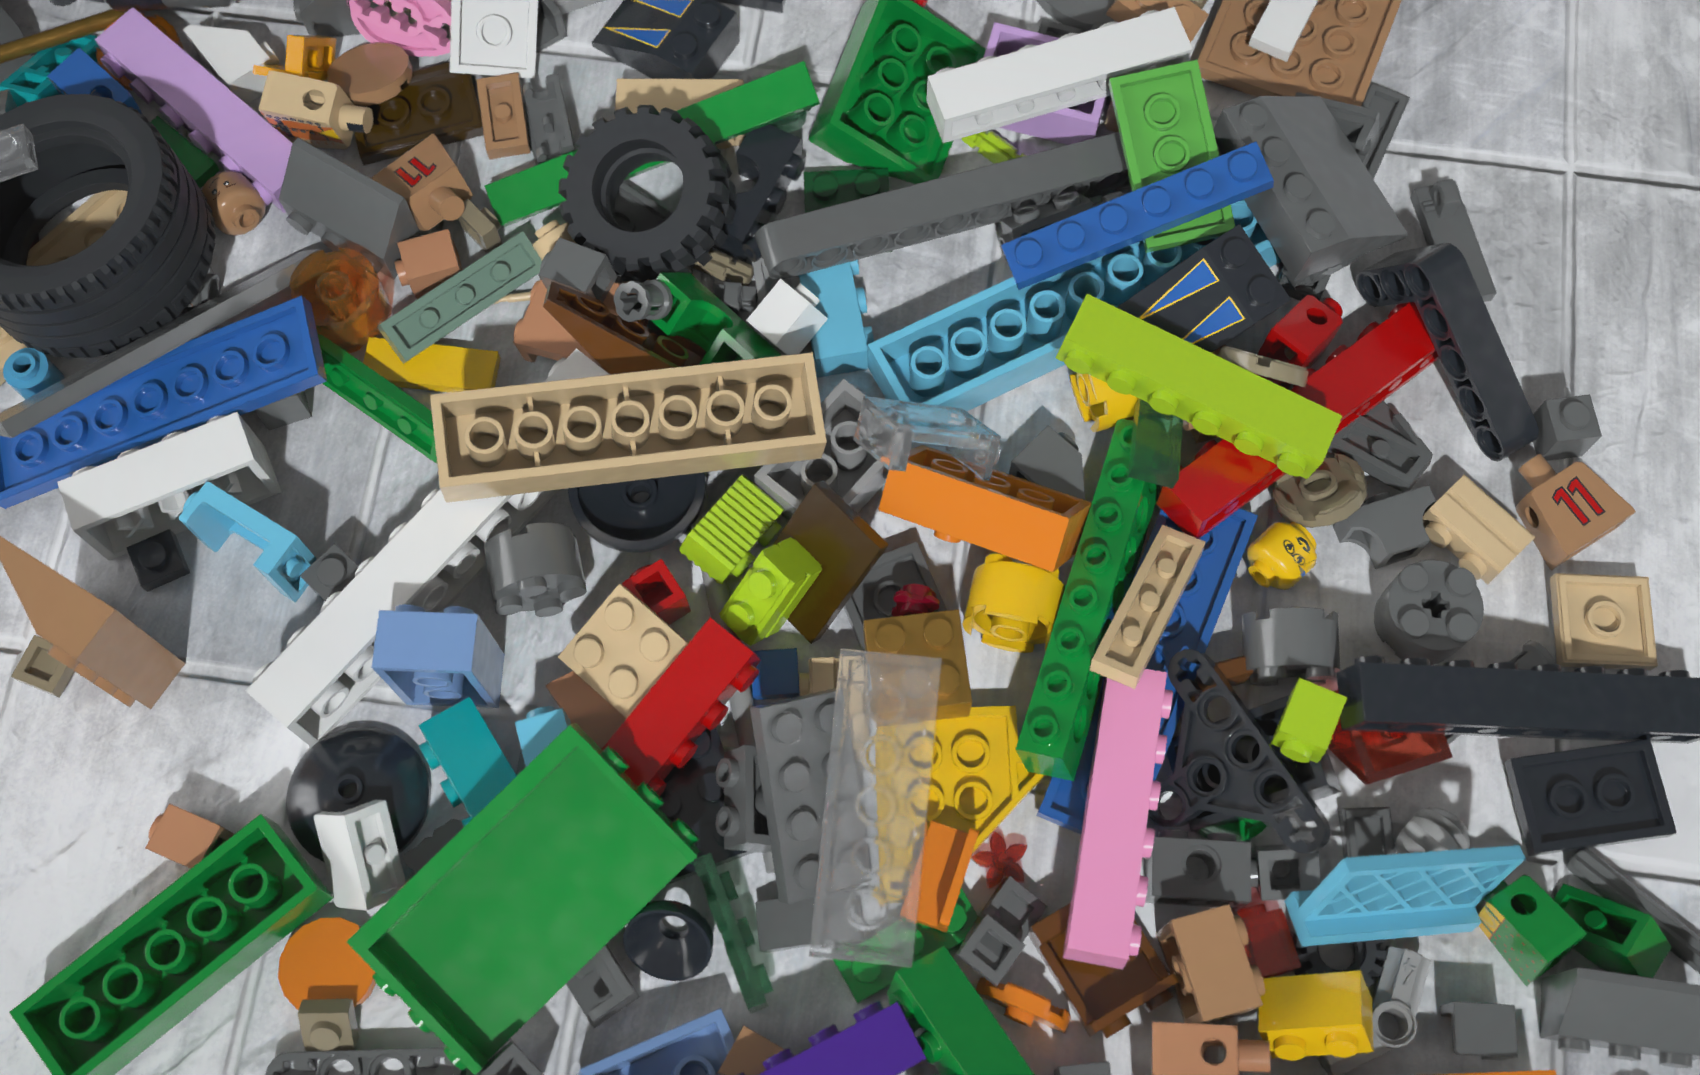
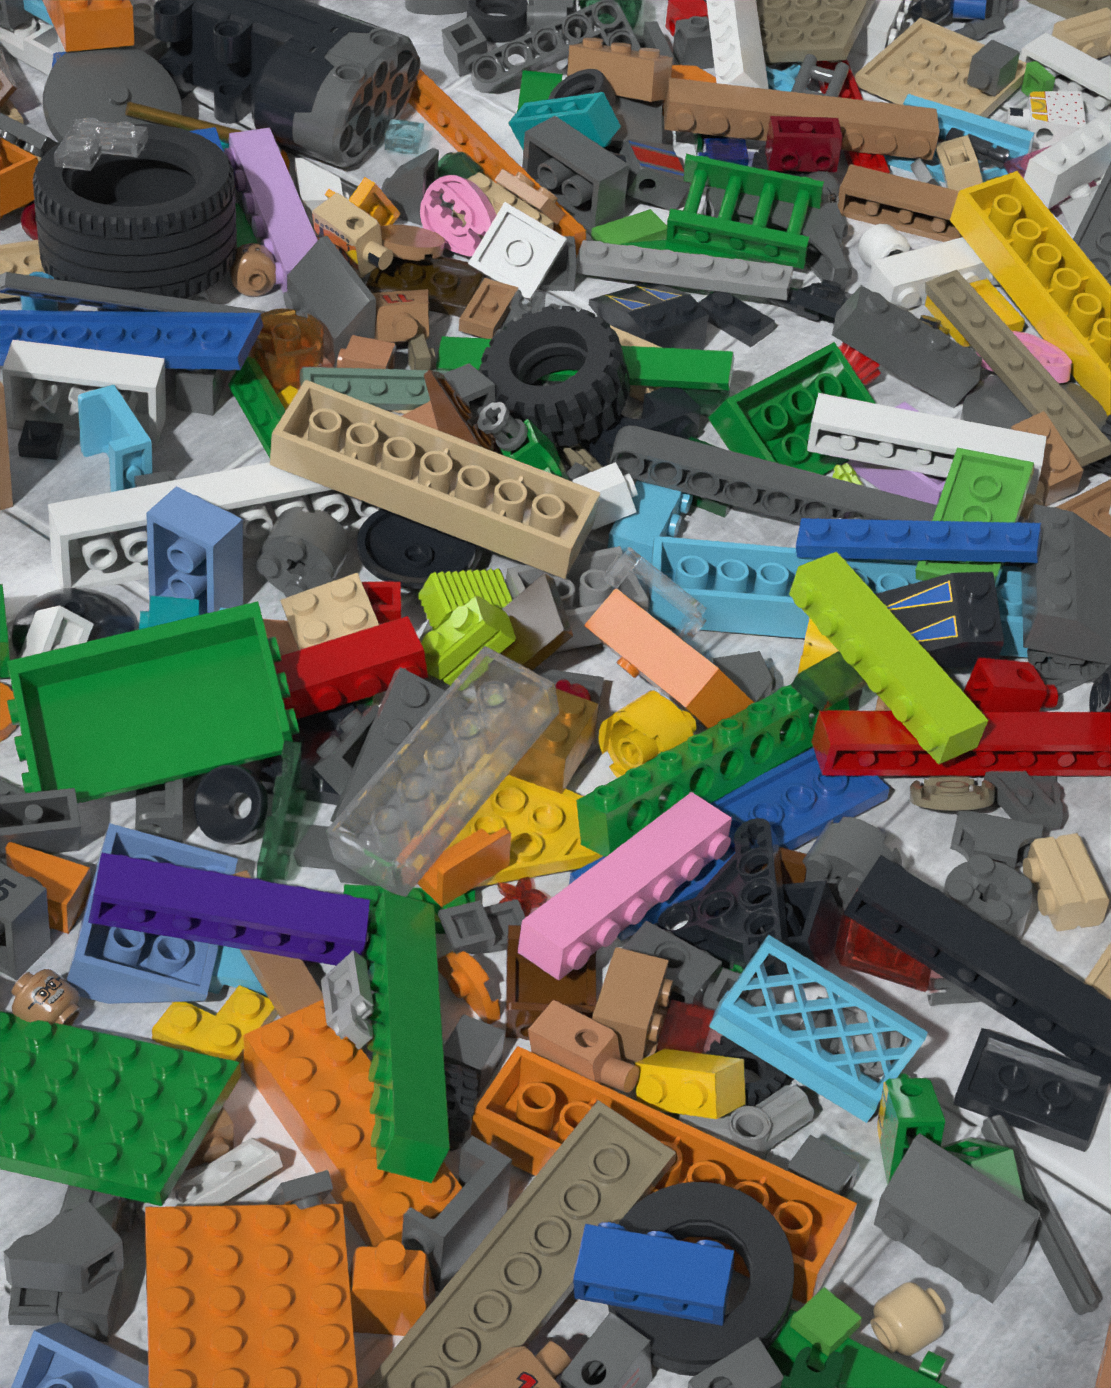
camera: 25 degrees right, 25 degrees down
(1147, 607) = (749, 775): tan plate -> none
(1265, 366) = (960, 674): dark tan tile -> none
(1281, 555) = (894, 816): yellow head -> none
(1308, 722) = (818, 886): lime brick -> none

